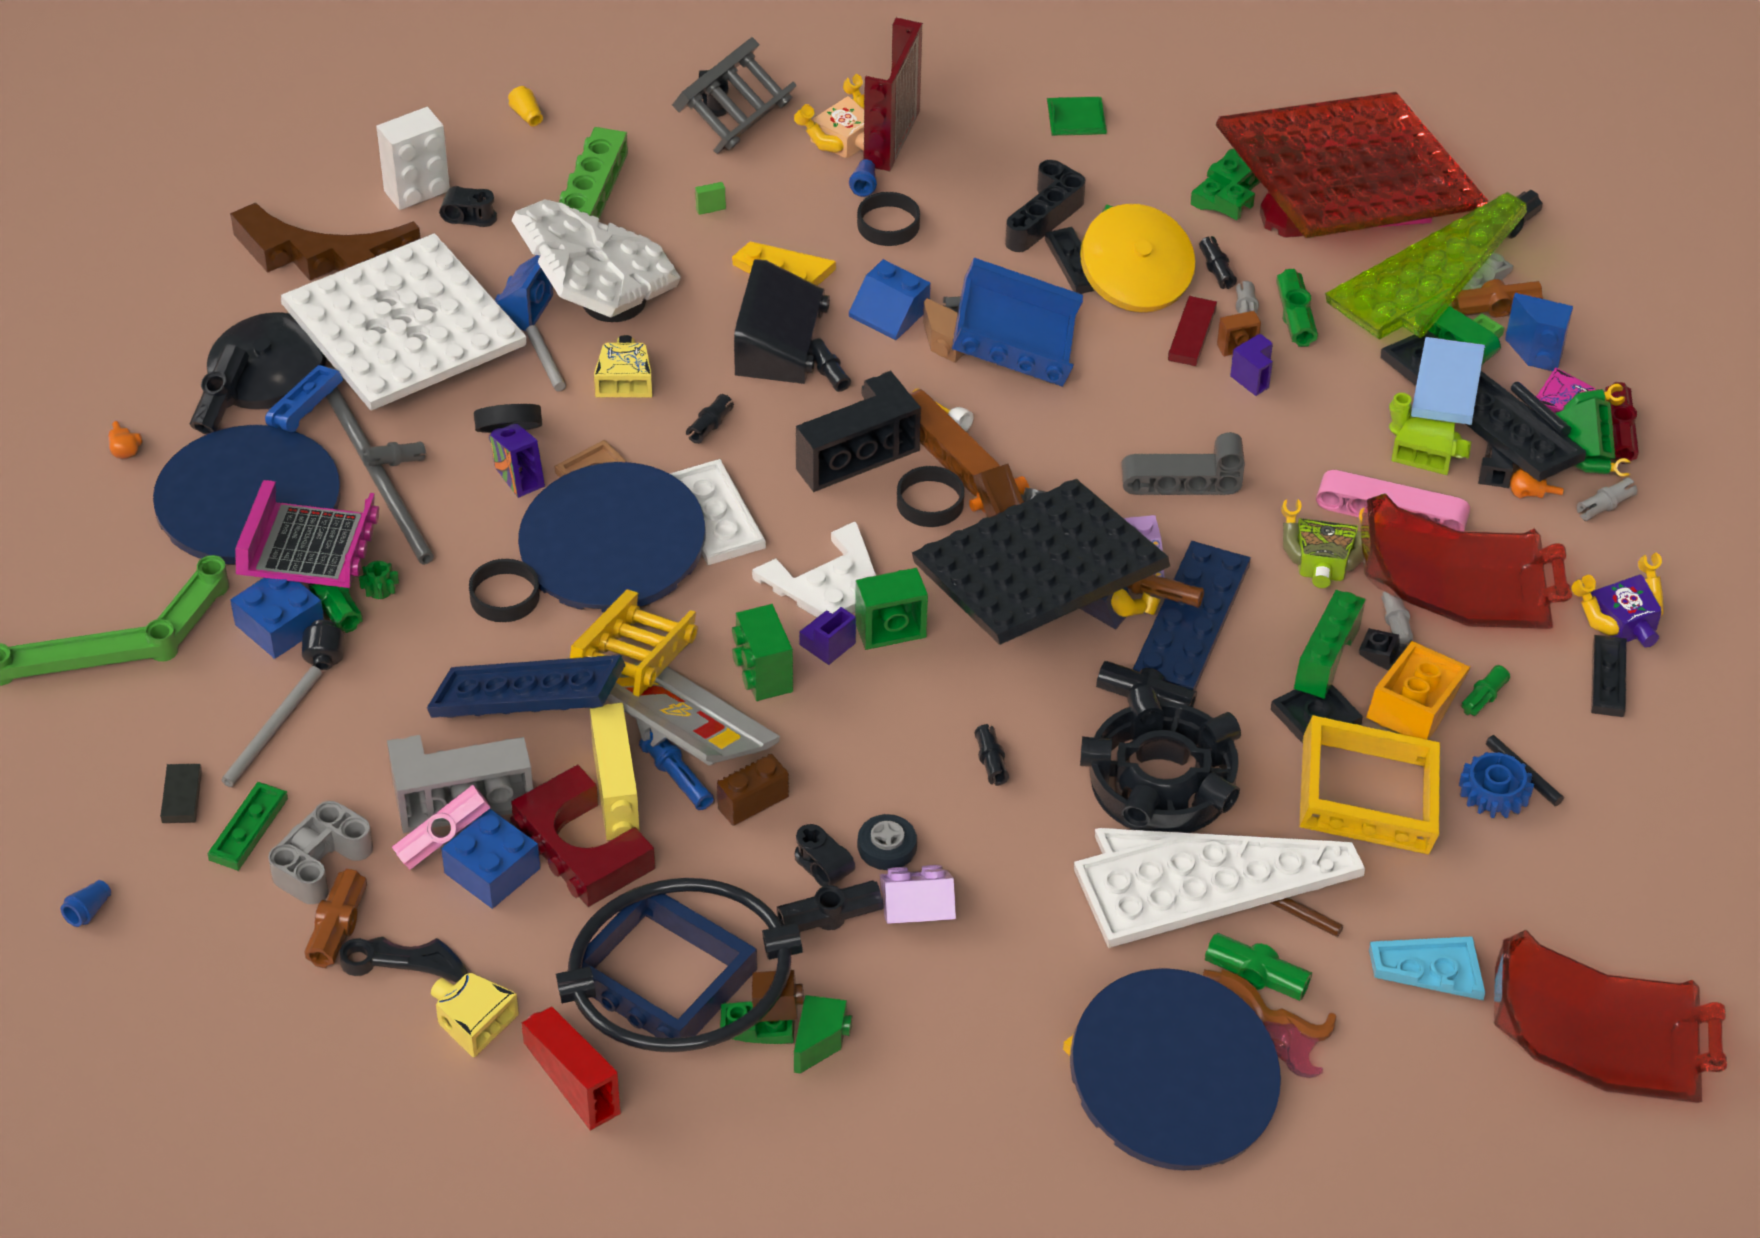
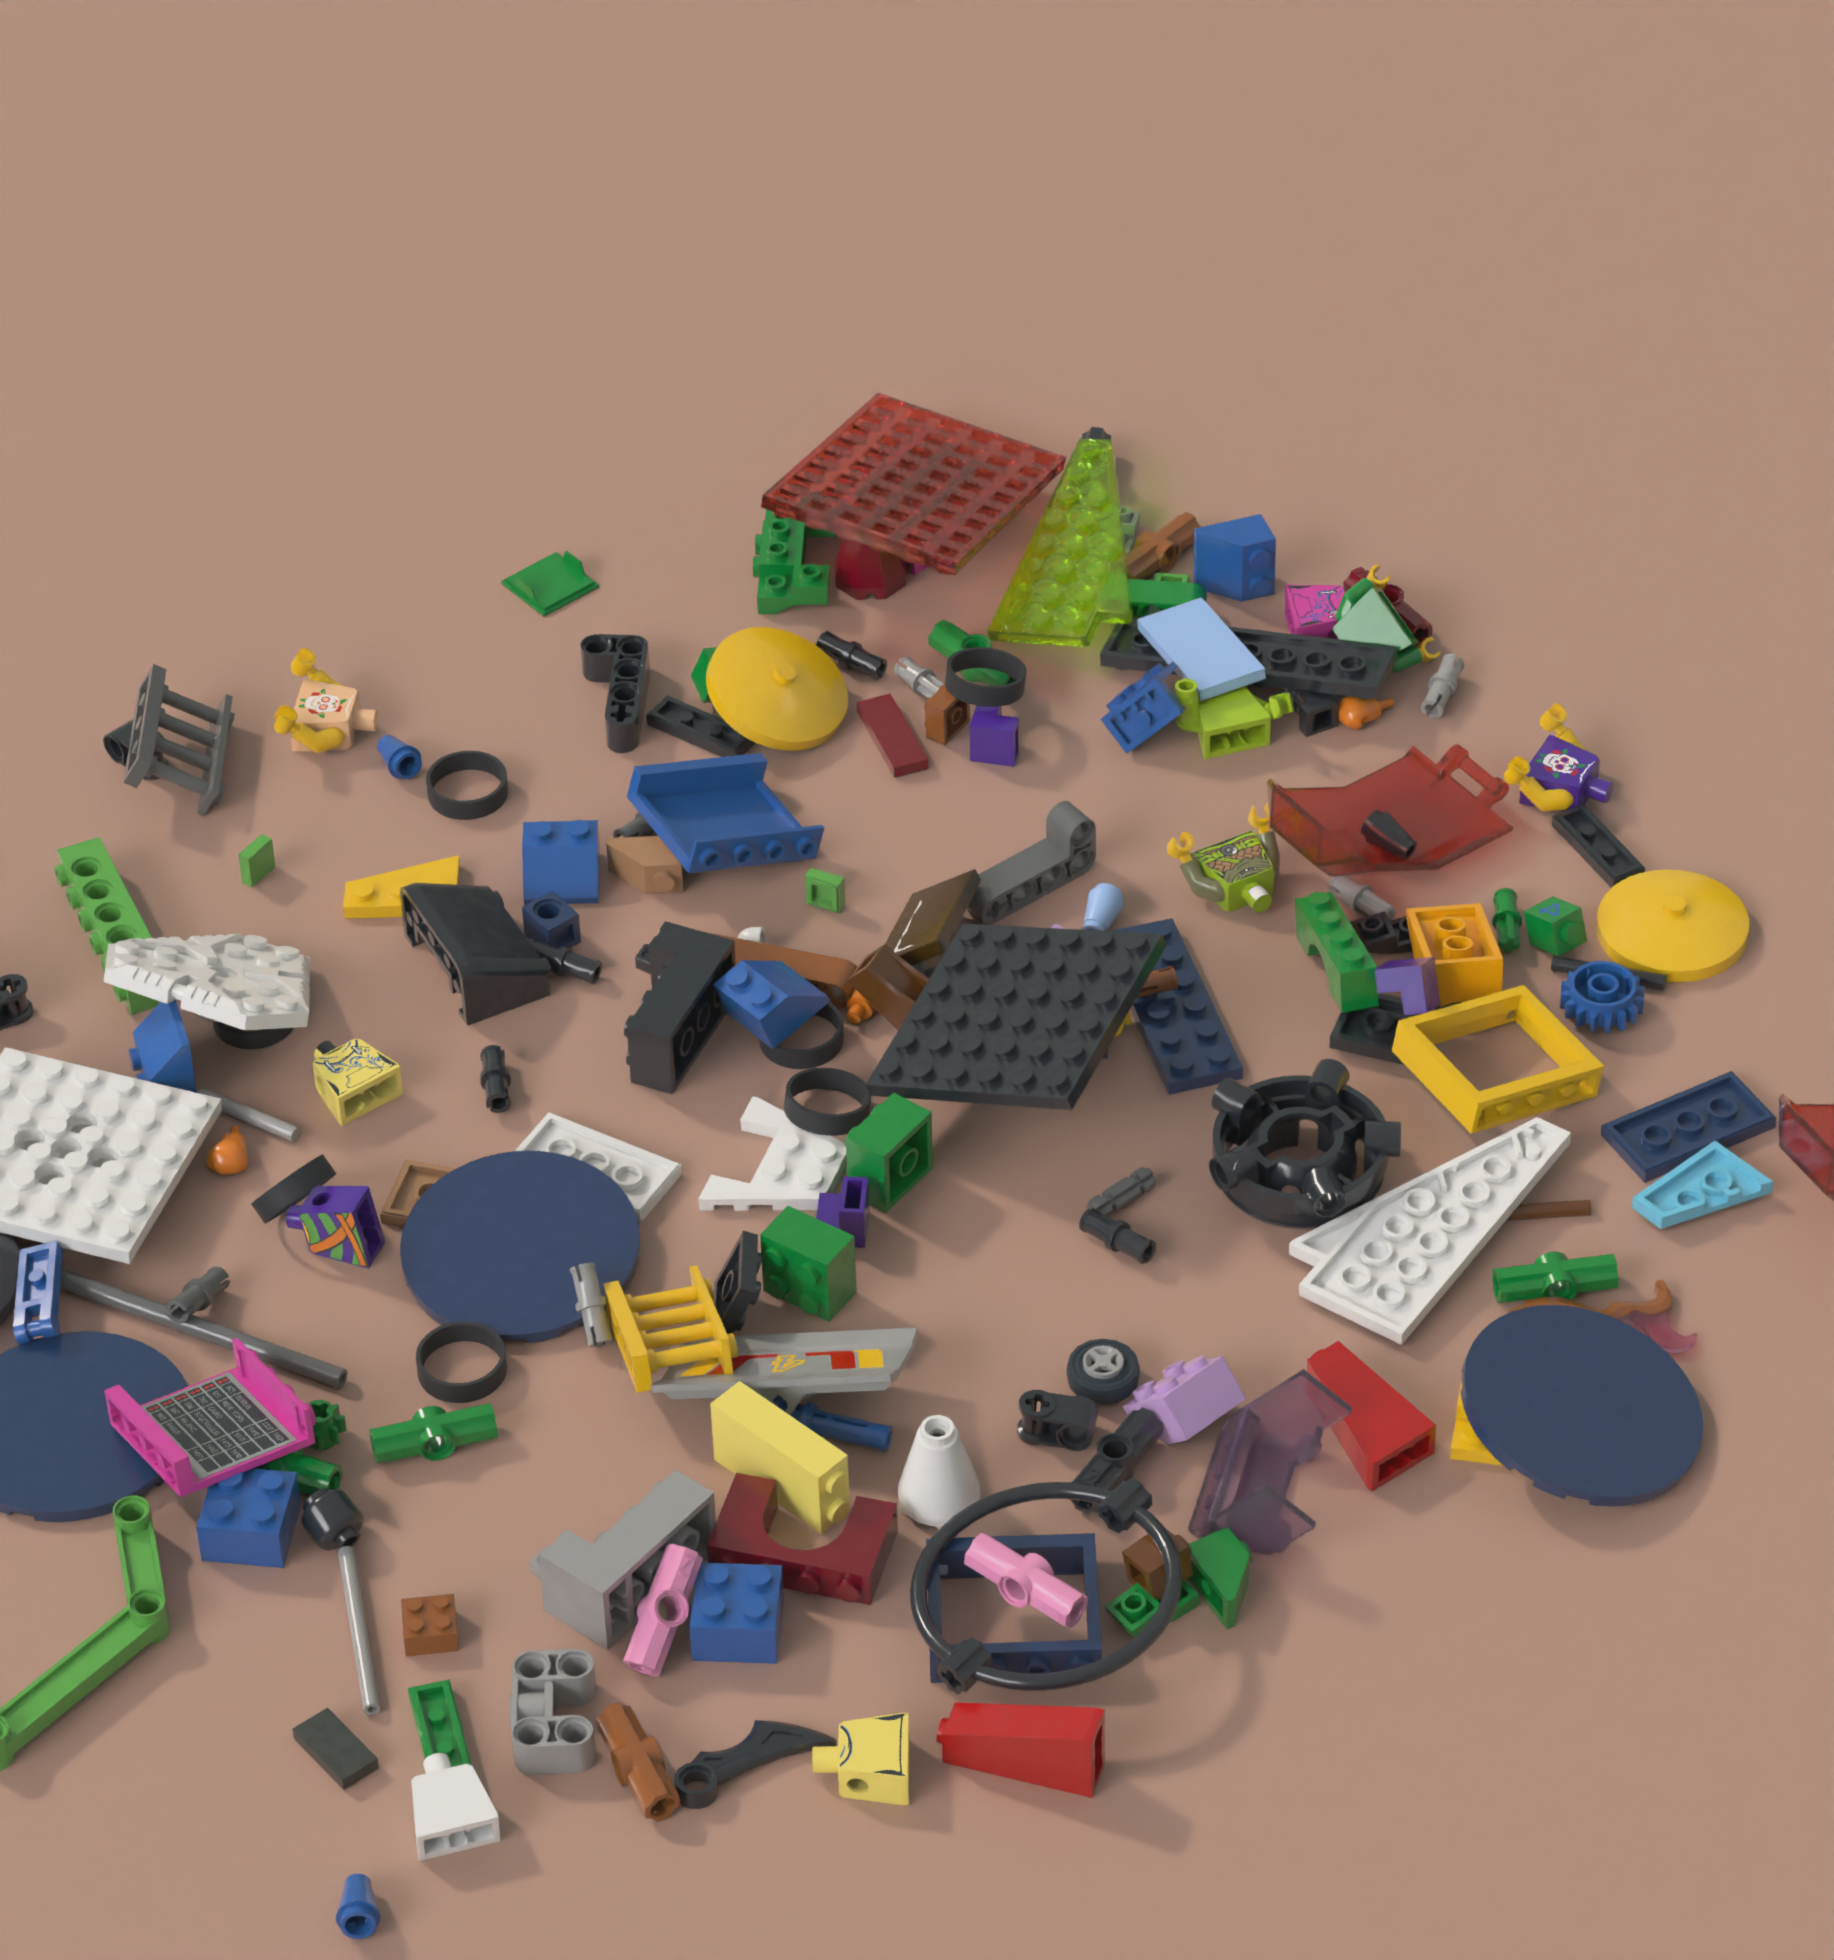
camera: 35 degrees left, 5 degrees down
(195, 875) = (451, 1809): none -> white torso
(312, 748) = (429, 1625): none -> dark orange piece
(438, 626) = (433, 1433): none -> green piece
(506, 376) = (228, 1154): none -> orange piece
(526, 686) = (611, 1428): dark blue plate -> none
(610, 592) = (591, 1304): none -> light grey pin
(672, 952) = (1026, 1580): none -> bright pink piece
(701, 845) = (937, 1474): none -> white cone
(704, 641) = (737, 1282): none -> black plate
(752, 789) = (926, 1392): reddish brown brick -> none
(844, 336) = (551, 921): none -> dark blue brick
(889, 529) = (828, 1079): none -> black tyre
(896, 103) = (371, 642): dark red panel -> none
(916, 973) = (1257, 1460): none -> clear purple windscreen
(917, 459) = (768, 999): none -> blue slope
(1026, 727) = (1123, 1191): none -> dark grey axle
(1027, 988) = (1384, 1429): none -> red slope
(1038, 410) = (825, 890): none -> bright green tile
(1073, 466) = (932, 918): none -> dark brown tile
(1124, 680) = (1190, 1093): black piece -> none
(1207, 525) = (1102, 907): none -> light blue cone
(1281, 304) = (980, 694): none -> black tyre
(1348, 494) = (1229, 800): bright pink beam -> none
(1353, 694) = (1414, 979): none -> piece
(1367, 401) = (1142, 708): none -> blue bracket
(1455, 581) = (1387, 834): none -> black cone
(1465, 910) = (1683, 1124): none -> dark blue tile
(1511, 714) = (1555, 926): none -> green brick
(1540, 408) = (1314, 629): black bar -> none
(1606, 763) = (1673, 925): none -> yellow dish

